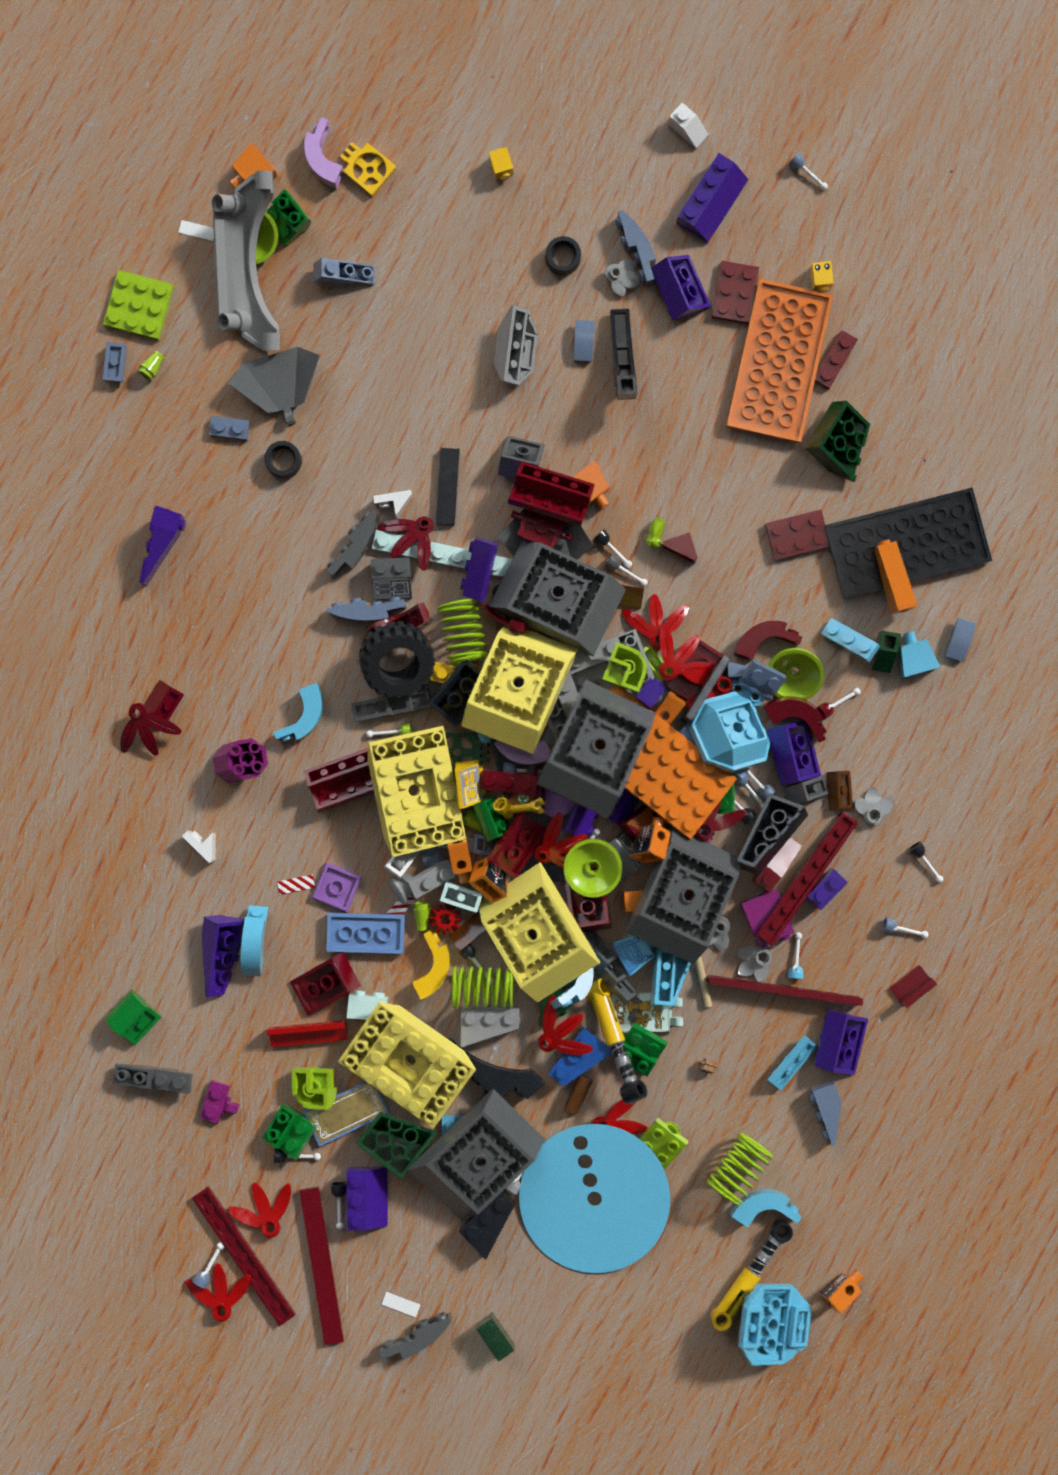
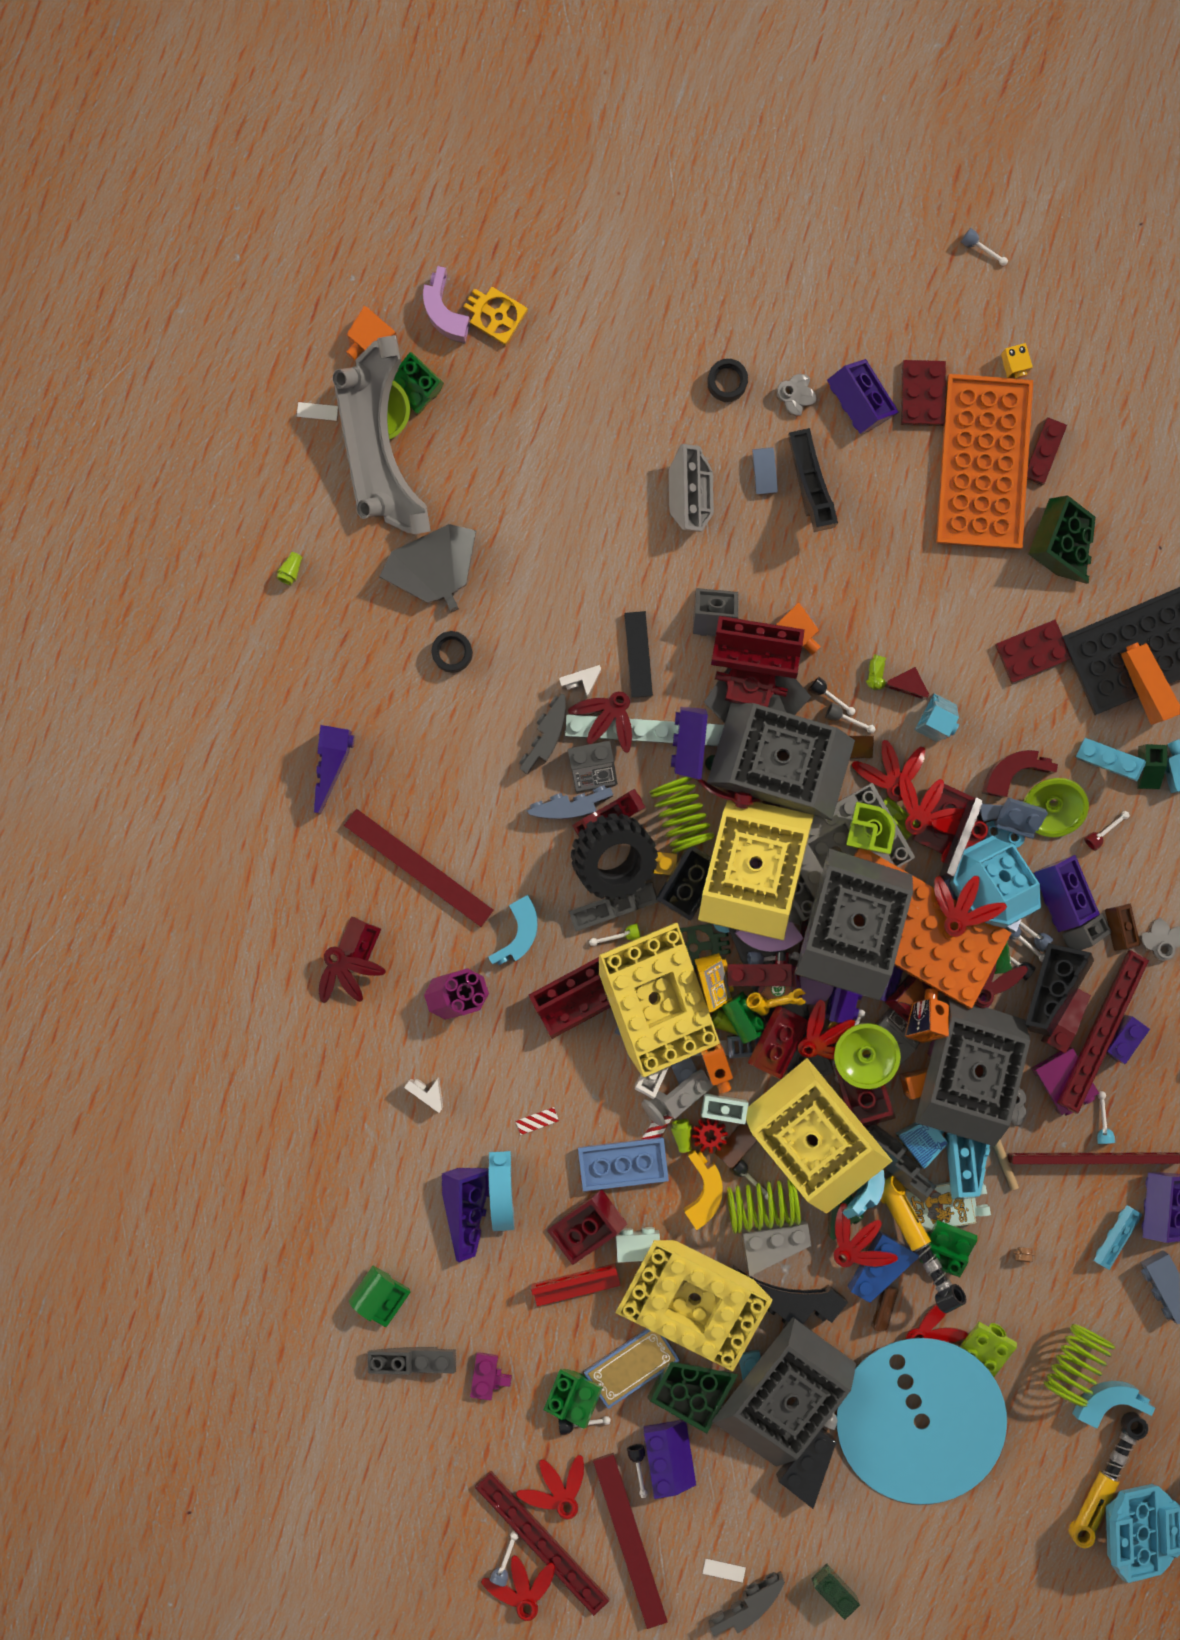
camera: 10 degrees left, 0 degrees up
(114, 362) = (248, 571): sand blue plate -> none
(138, 305) = (265, 503): lime plate -> none
(225, 645) = (418, 867): none -> dark red tile
(229, 428) = (387, 625): sand blue plate -> none
(314, 1087) = (592, 1344): lime brick -> none
(337, 887) = (583, 1117): medium lavender tile -> none
(343, 272) = (486, 434): sand blue slope -> none
(489, 880) = (753, 1086): orange torso -> none
(501, 163) = (643, 288): yellow brick -> none
(636, 240) = (804, 350): sand blue slope -> none
(650, 692) = (902, 852): dark purple brick -> none
(673, 704) = (926, 860): orange torso -> none
(688, 125) = (844, 216): white slope -> none
(691, 753) = (965, 901): none -> red plant
(702, 581) = (938, 719): none -> medium azure wedge
(712, 198) = (883, 292): dark purple slope -> none
(751, 964) = (1055, 1135): light grey plate -> none
(796, 707) = (1061, 842): dark red arch -> none

